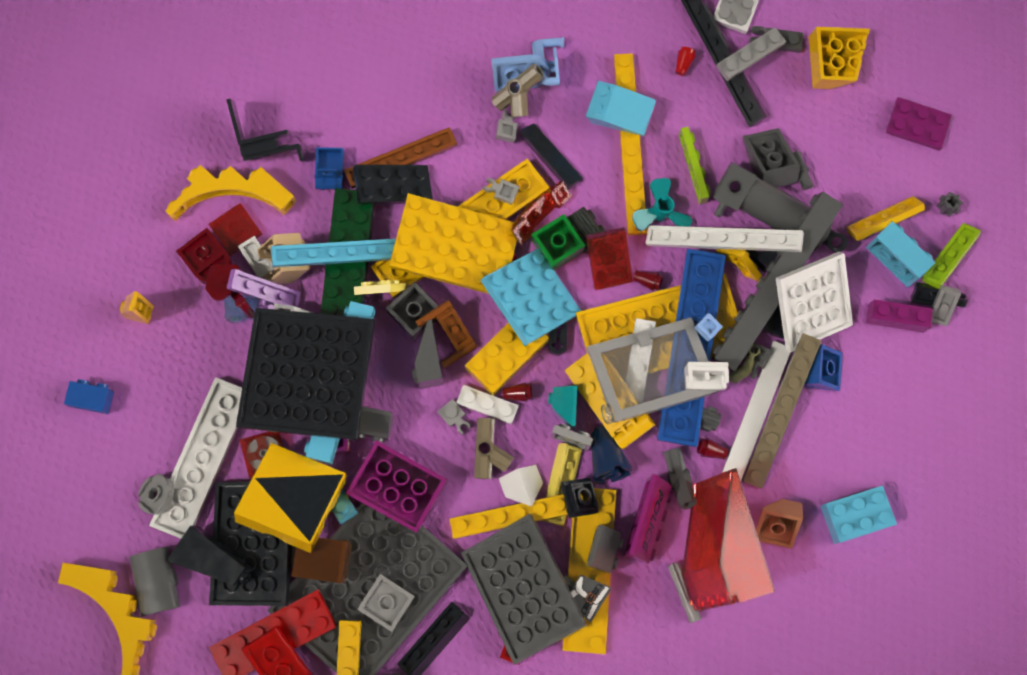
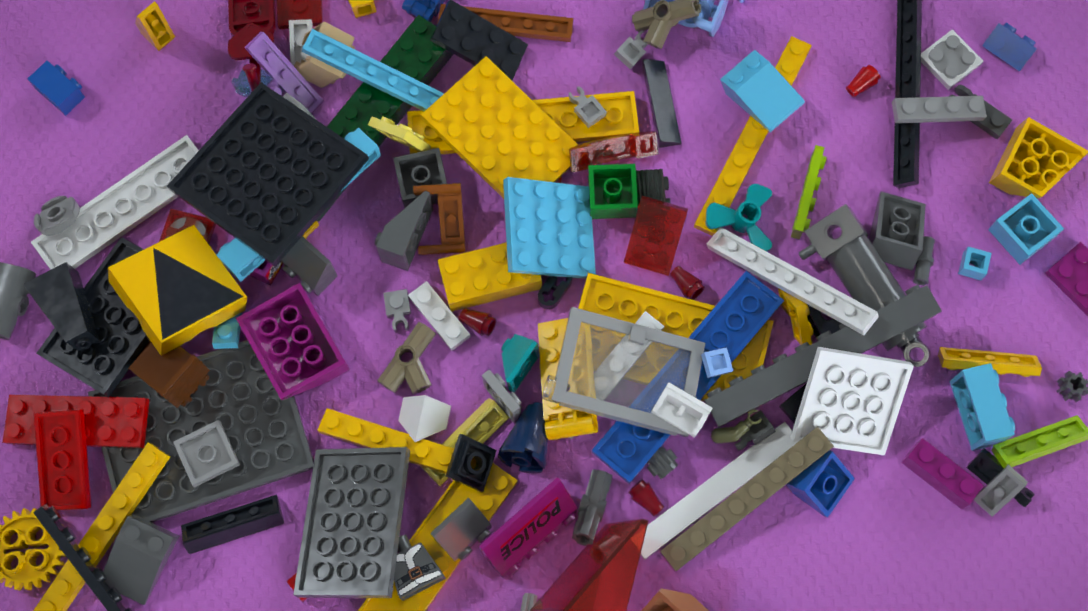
camera: 35 degrees right, 5 degrees down
(840, 149) = (979, 259): none -> medium azure plate
(858, 109) = (1025, 229): none -> medium azure brick

